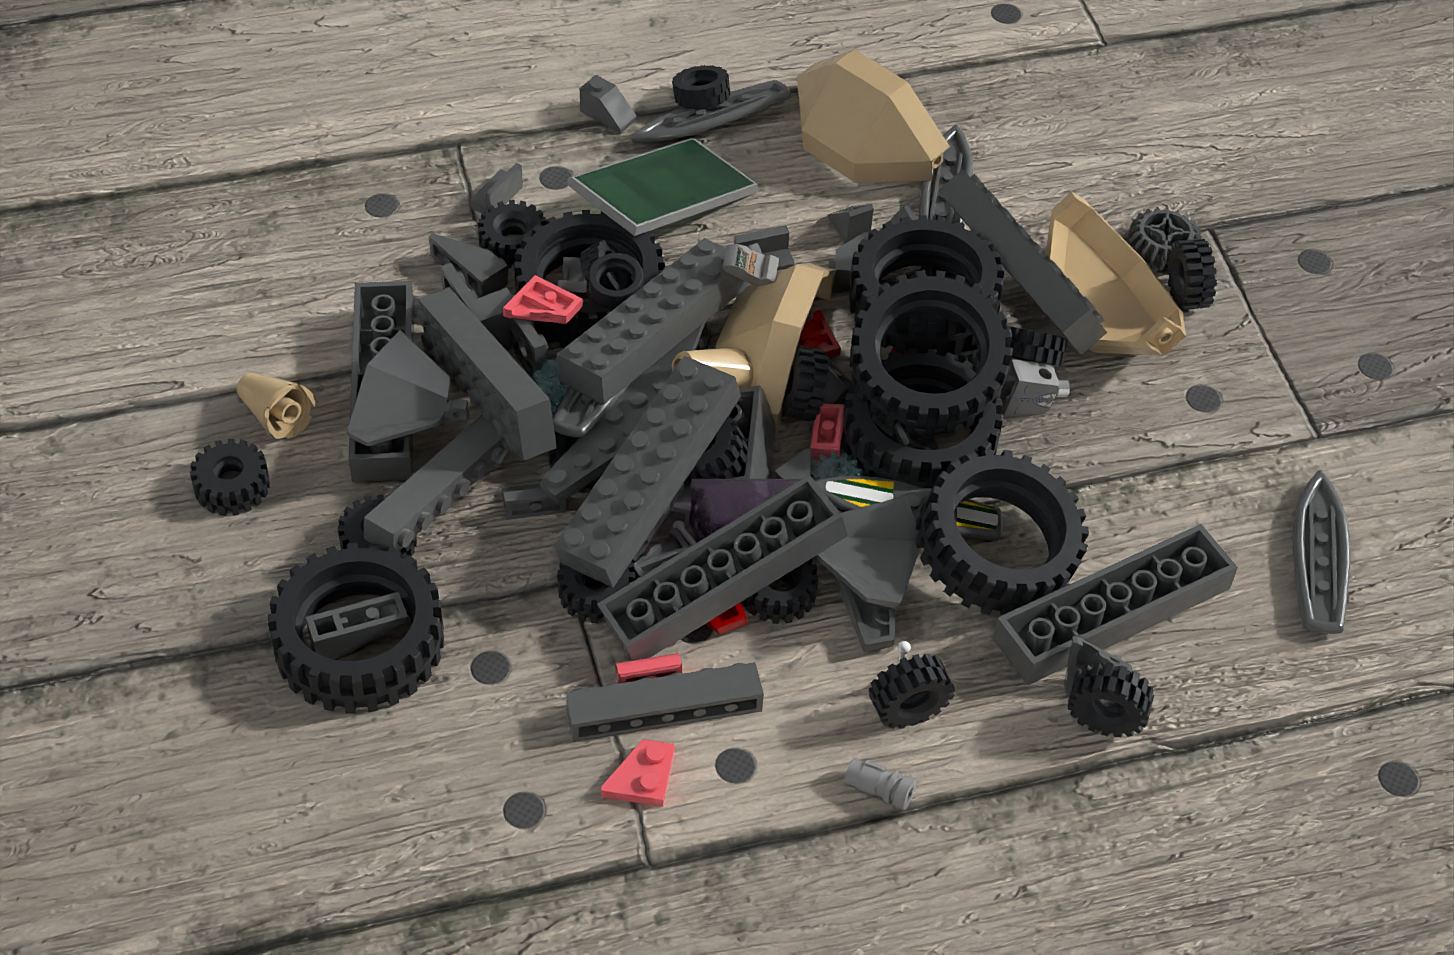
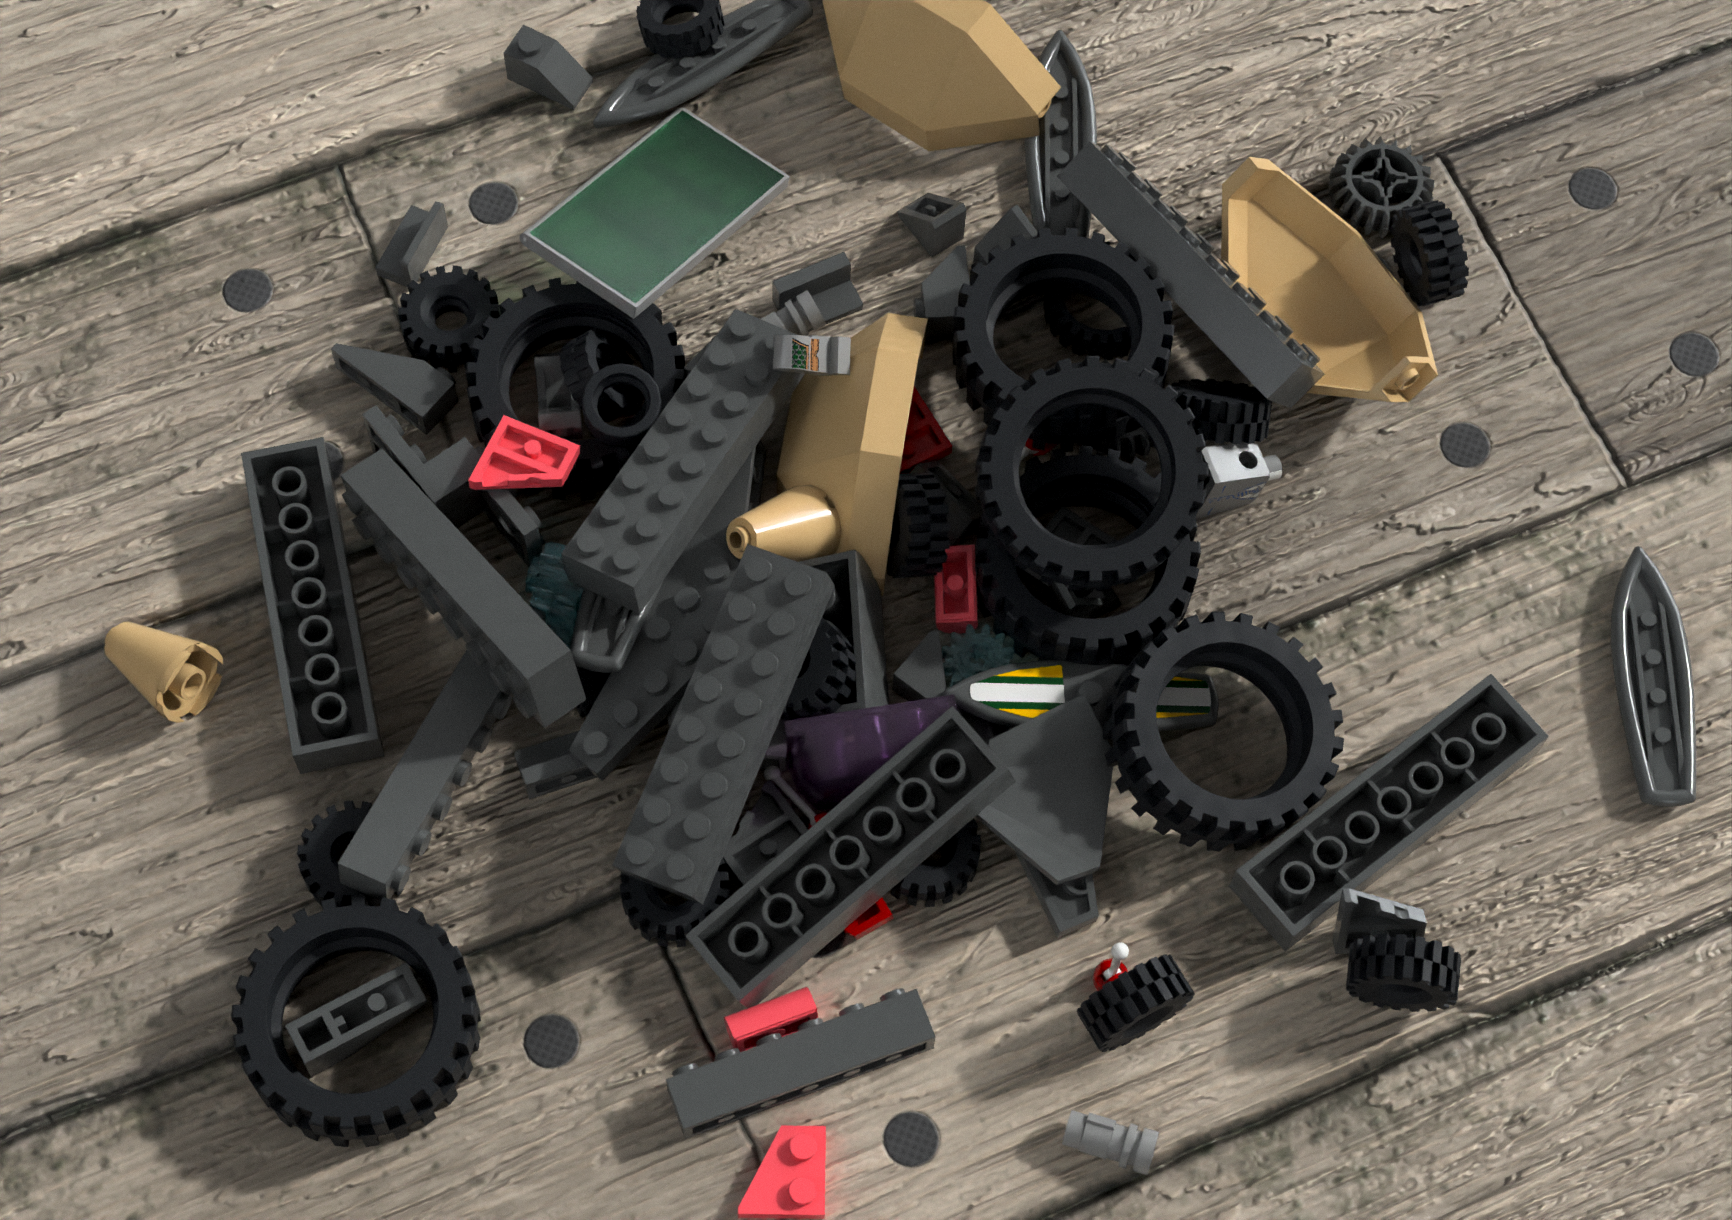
camera: 10 degrees left, 15 degrees up
(235, 492) = (135, 826): black tyre -> none
(402, 395) = (348, 648): dark grey panel -> none

